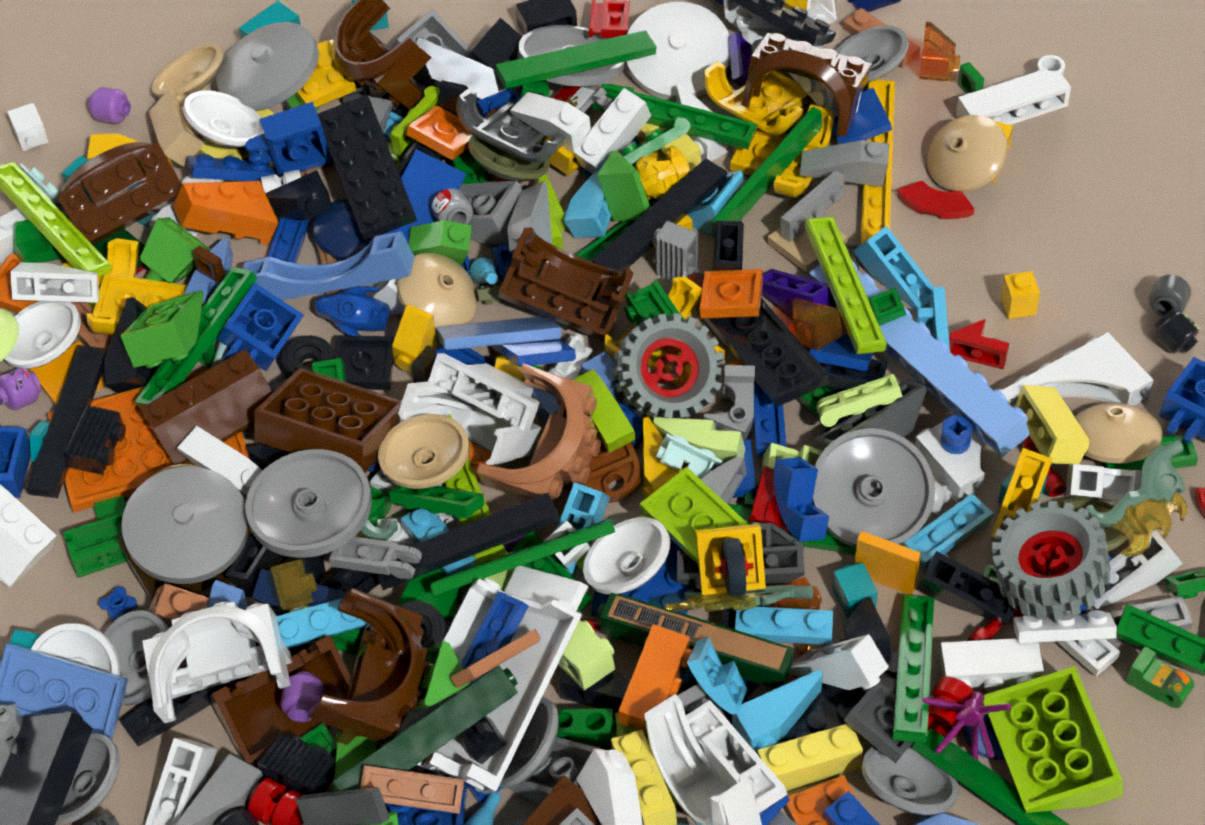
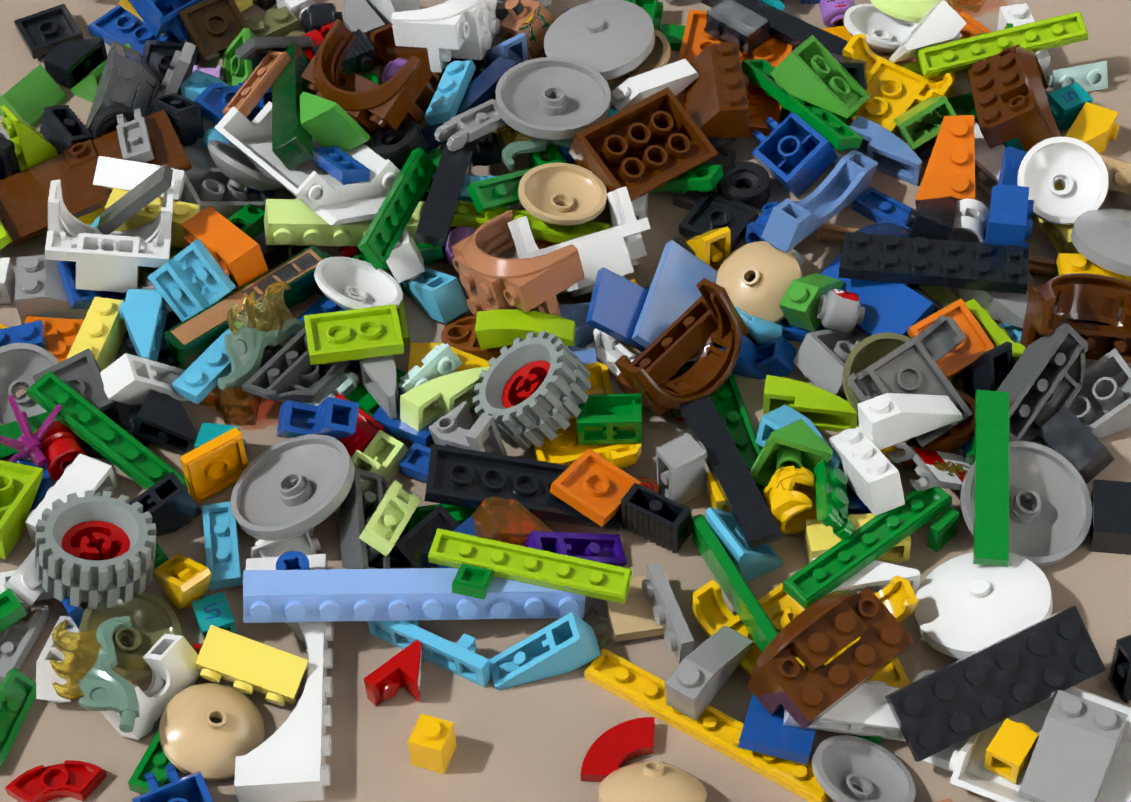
camera: 120 degrees right, 5 degrees down
(208, 264) = (883, 131): reddish brown tile -> none
(293, 585) = (482, 68): clear yellow brick -> none
(483, 739) = (263, 142): black tile -> none
(496, 658) = (305, 138): nougat tile -> none
(532, 212) = (783, 361): light grey slope -> none
(609, 18) = (1076, 569): plate -> none
(666, 757) = (135, 200): none -> dark grey tile
(730, 560) = (272, 317): yellow plate -> none
(740, 58) = (931, 653): dark purple tile -> none

